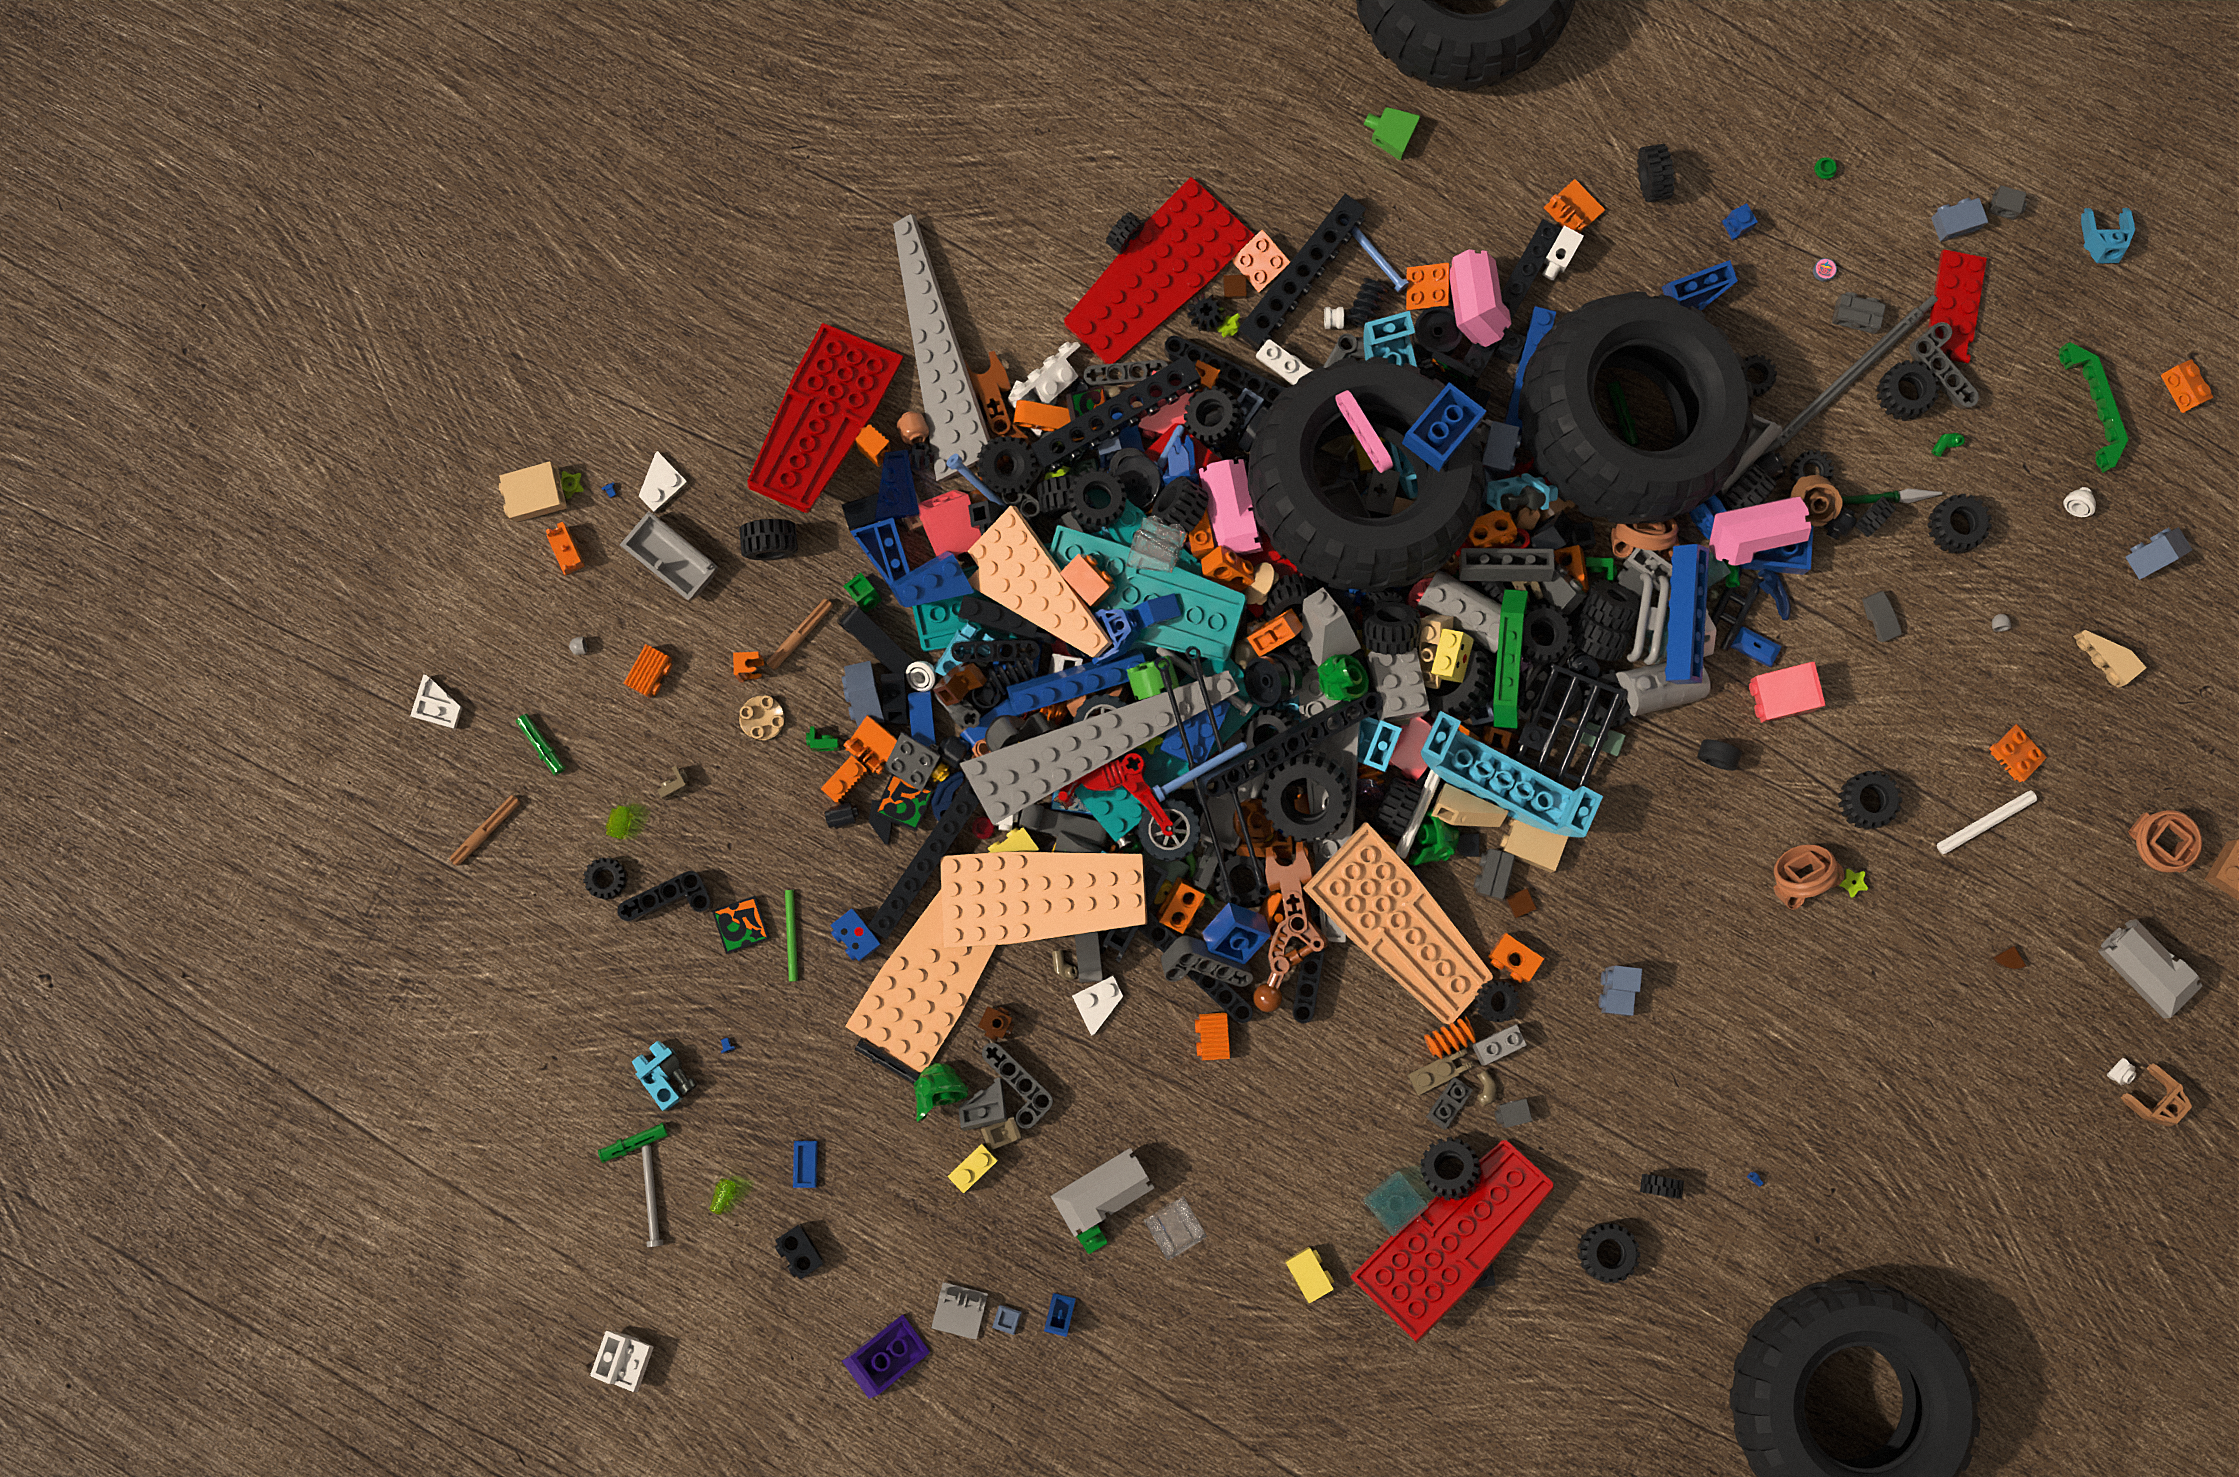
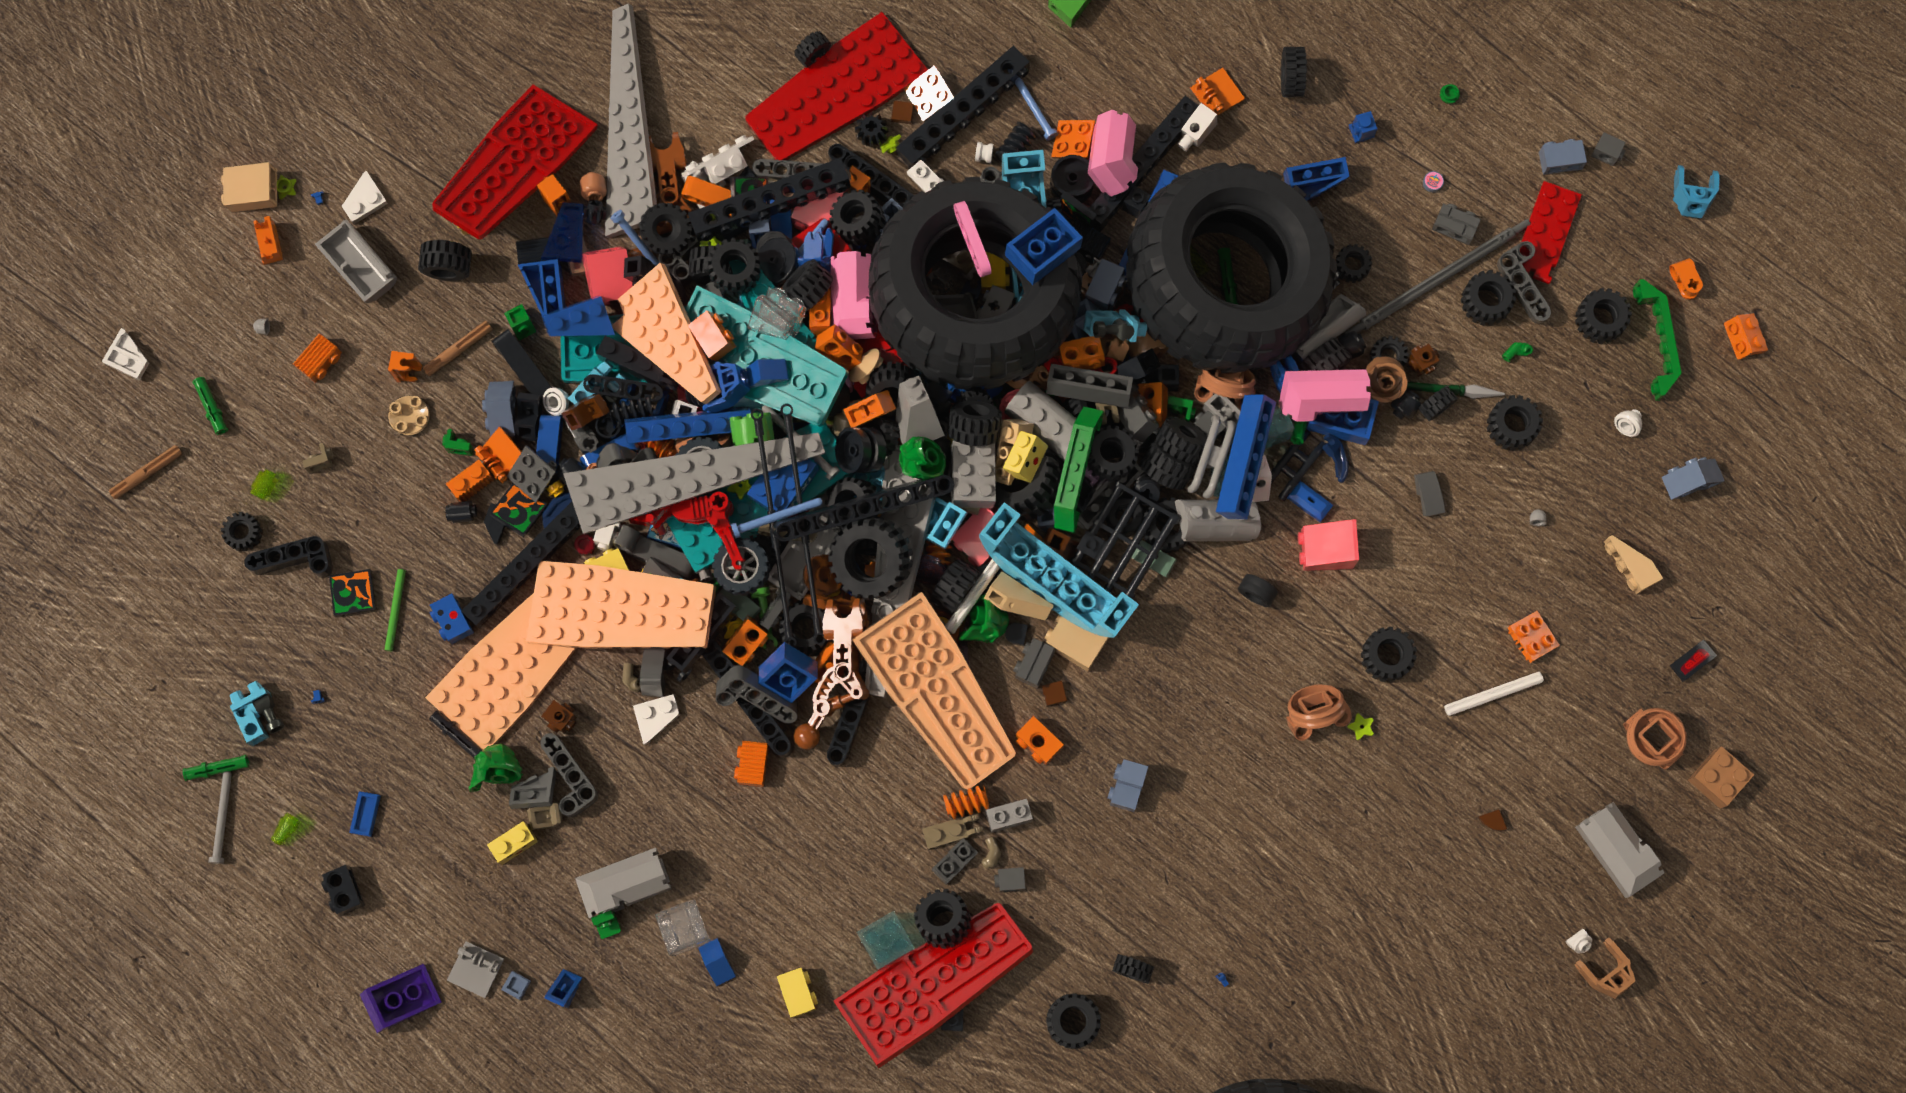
camera: 15 degrees right, 5 degrees down
(622, 1360) = (163, 959): white brick -> none
(1216, 1256) = (716, 962): none -> blue slope
(1509, 1001) = (1027, 776): black tyre -> none
(1850, 470) = (1421, 365): none -> reddish brown brick
(2045, 377) = (1614, 305): none -> black tyre
(2113, 331) = (1685, 275): none -> orange piece
(2190, 750) = (1693, 660): none -> slope

